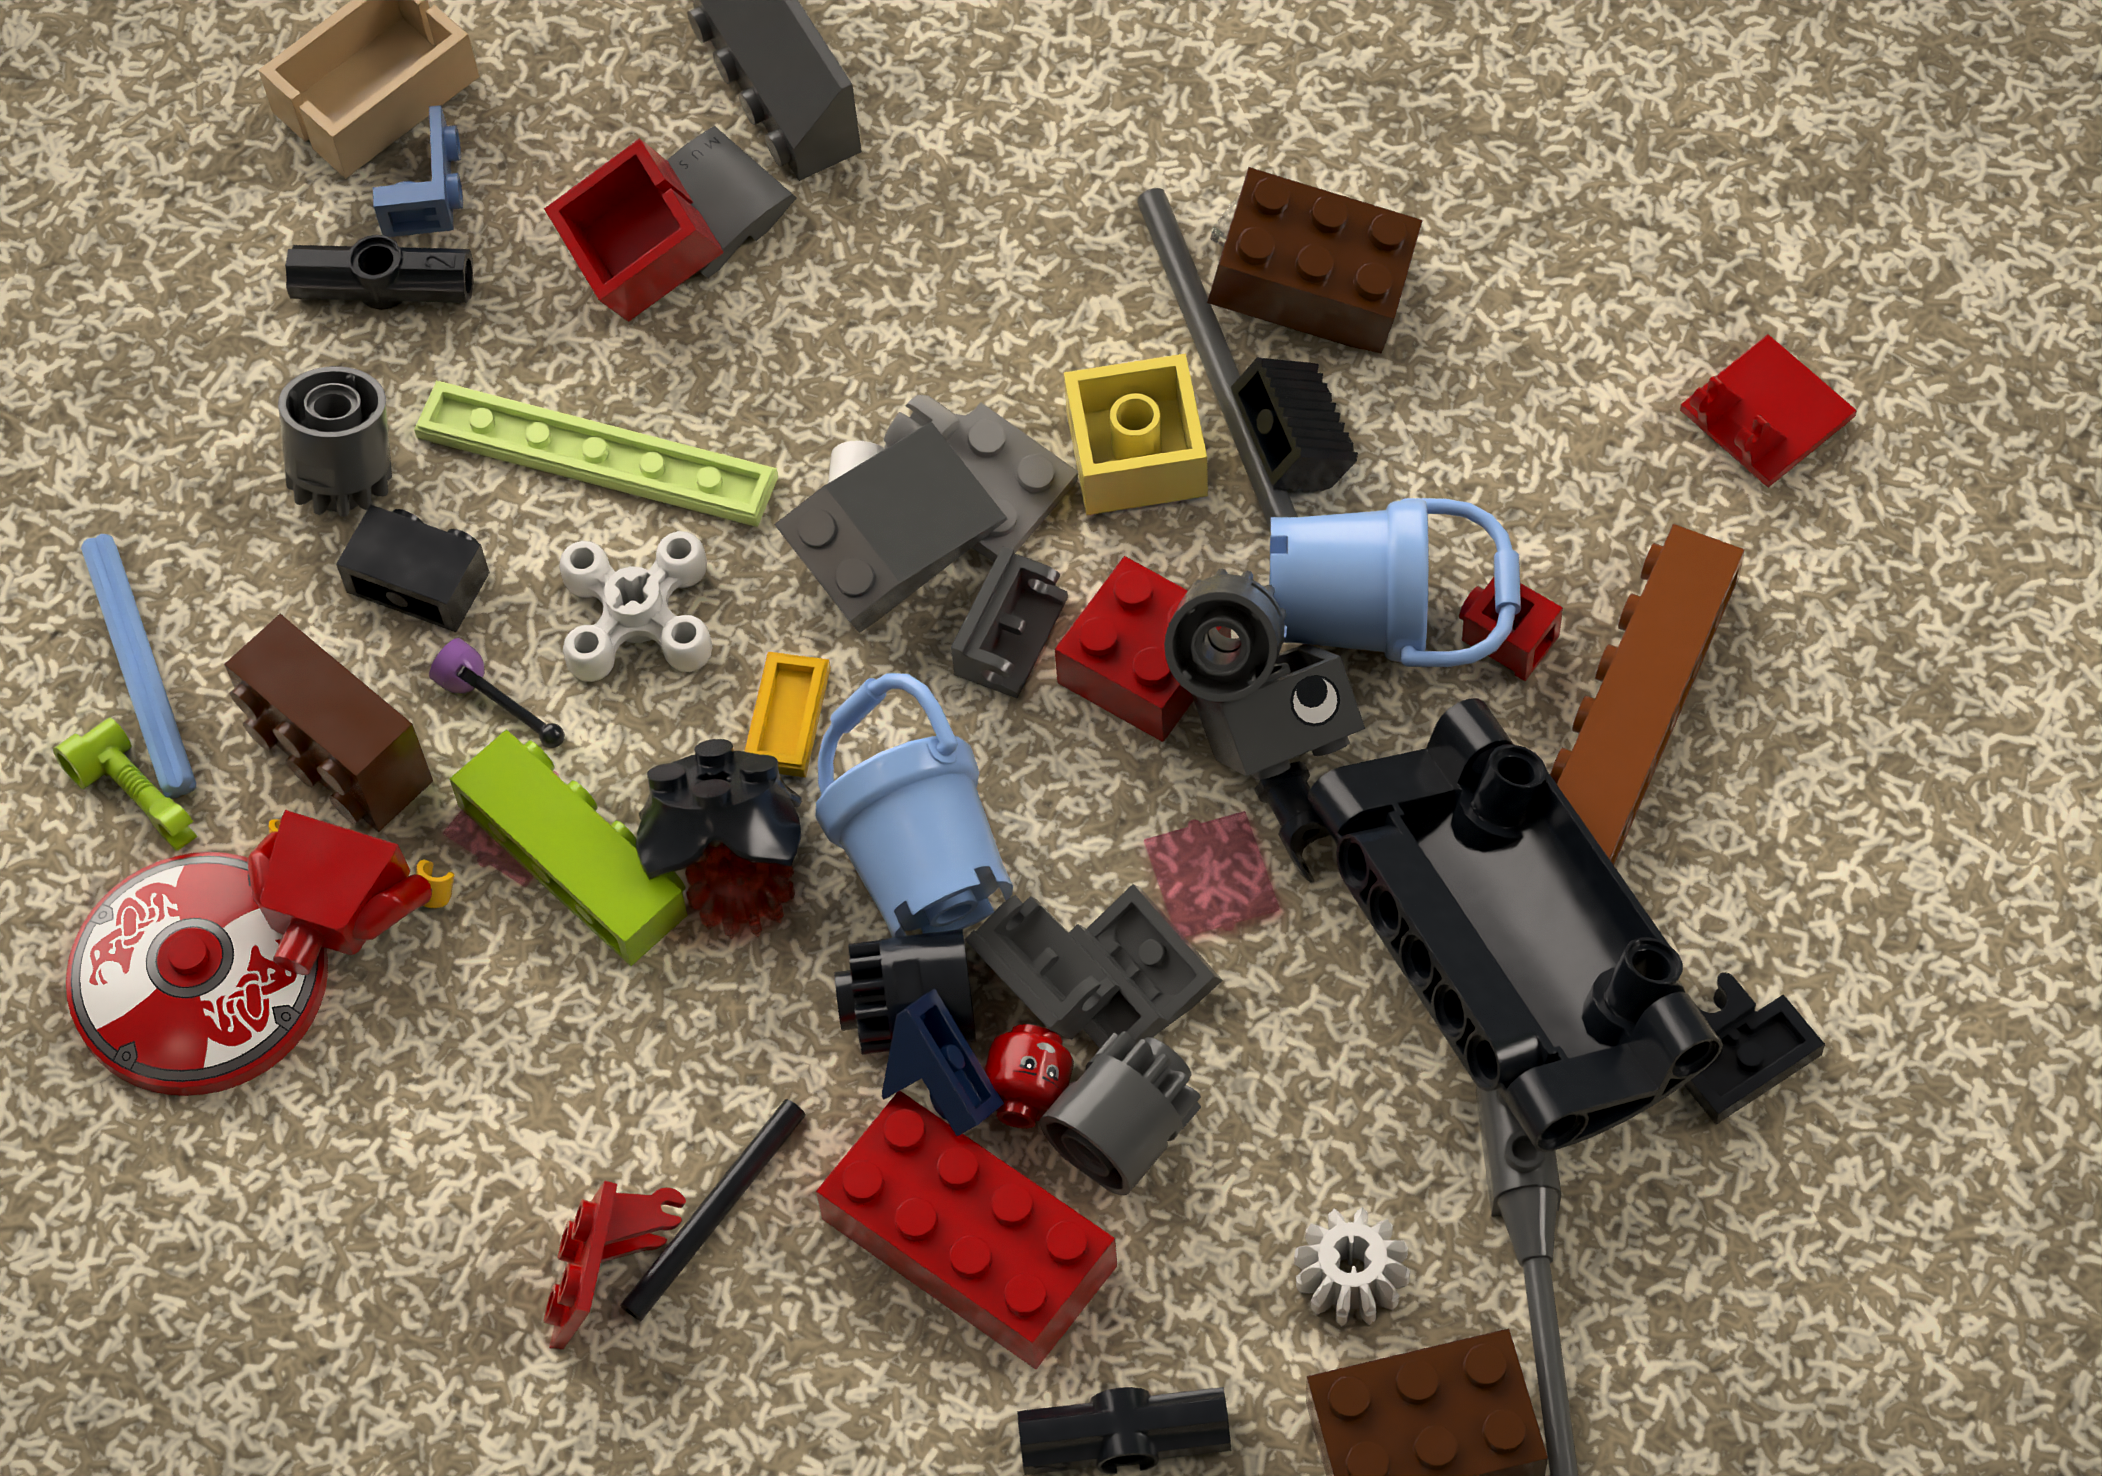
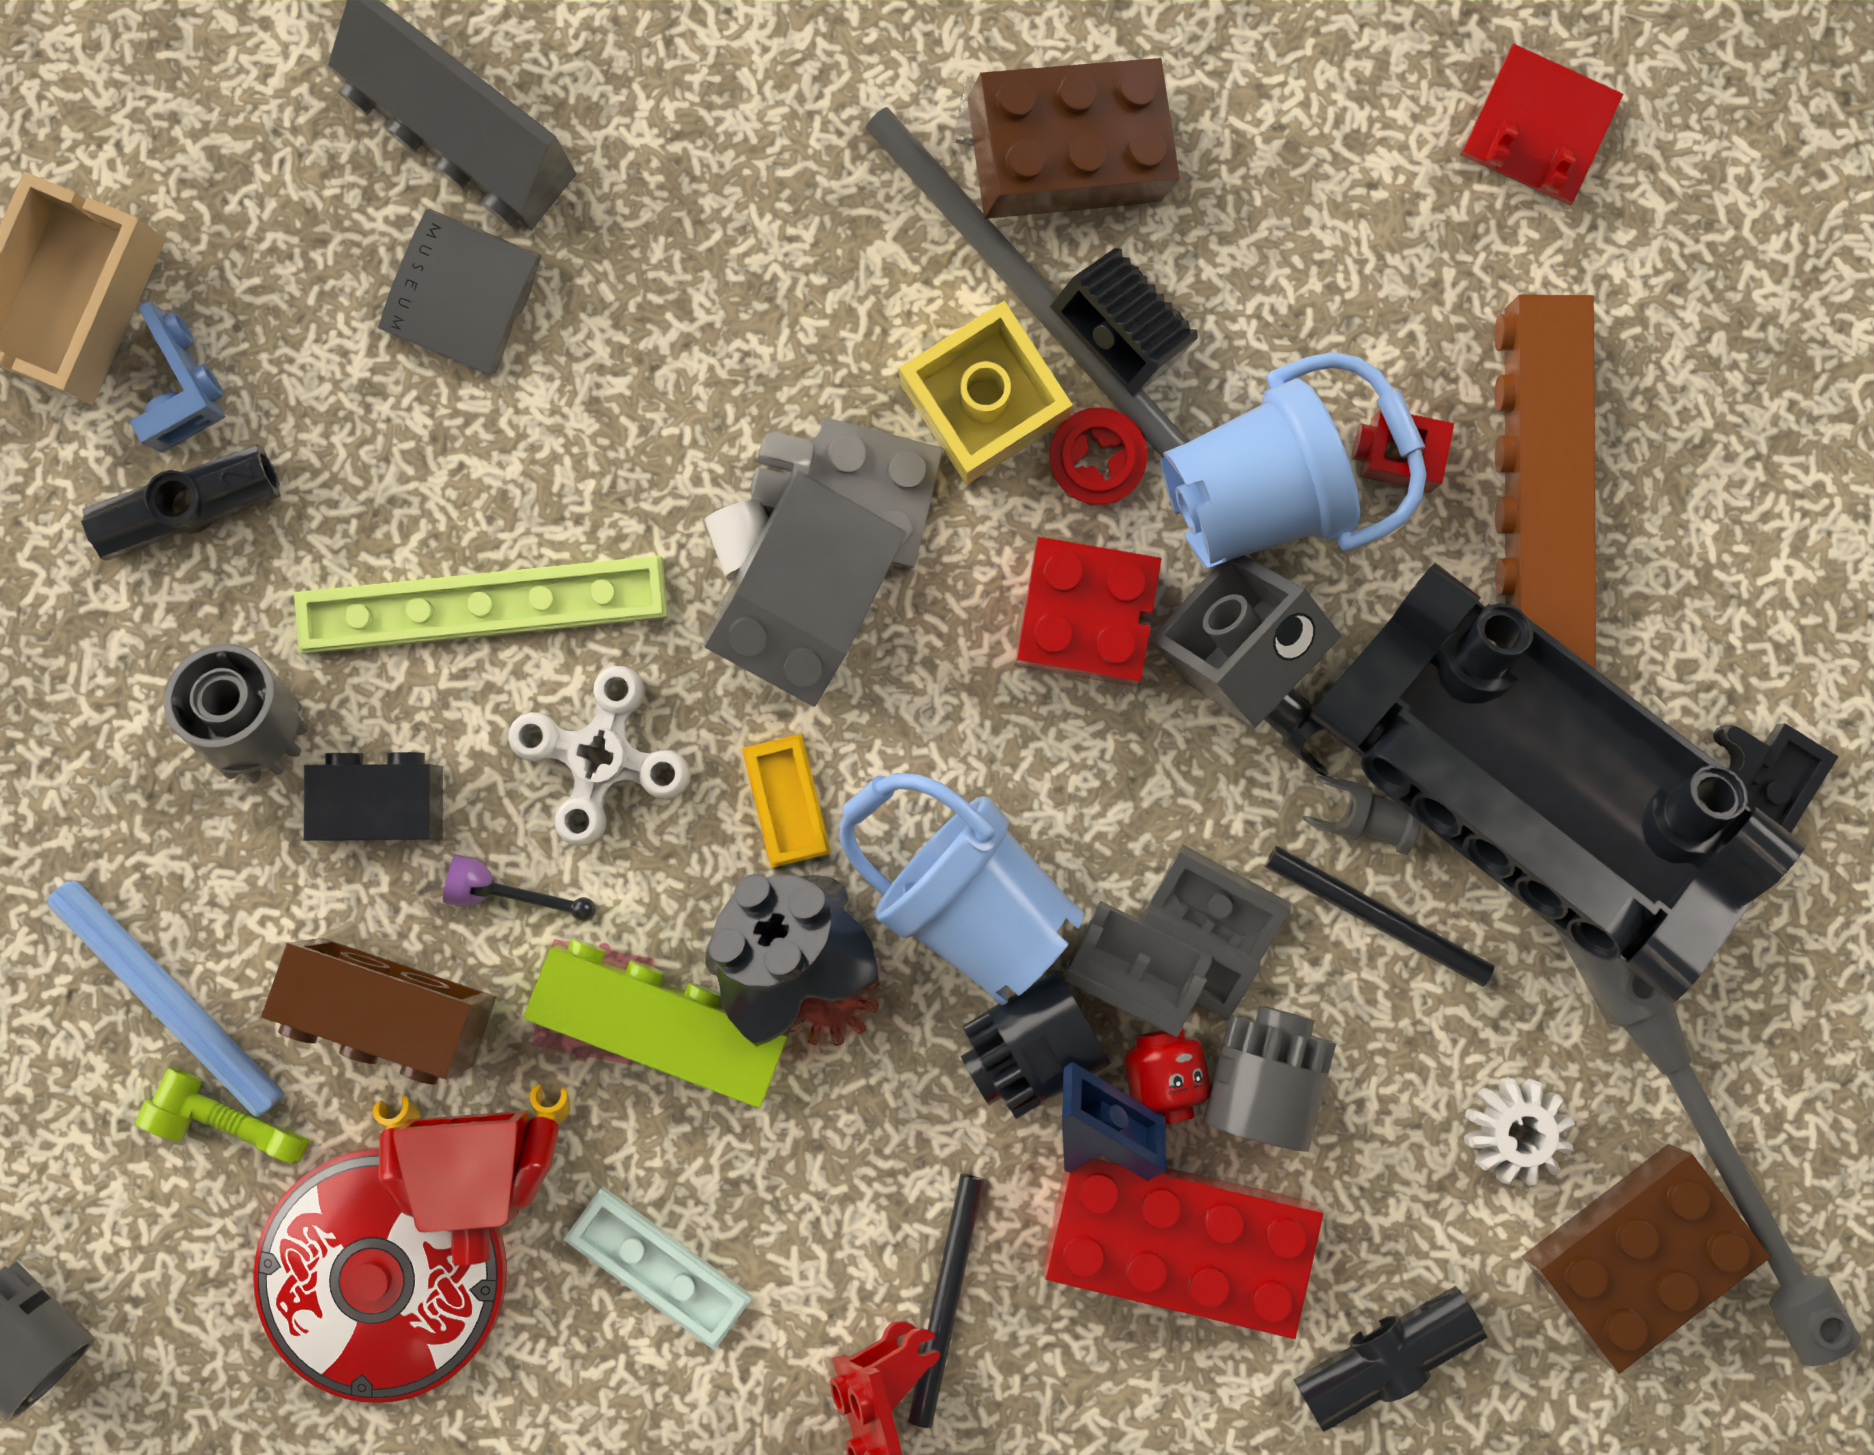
camera: 25 degrees left, 25 degrees up
(455, 1070) = (658, 1268): none -> light aqua tile
(633, 230) = (408, 369): red piece -> none
(1008, 623) = (951, 632): dark grey hinge -> none
(1197, 518) = (1109, 430): none -> red gear
(1211, 874) = (1234, 801): clear pink piece -> none
(1218, 665) = (1194, 614): dark grey gear -> none
(1305, 1028) = (1379, 916): none -> black piece
(1335, 929) = (1370, 817): none -> dark grey piece

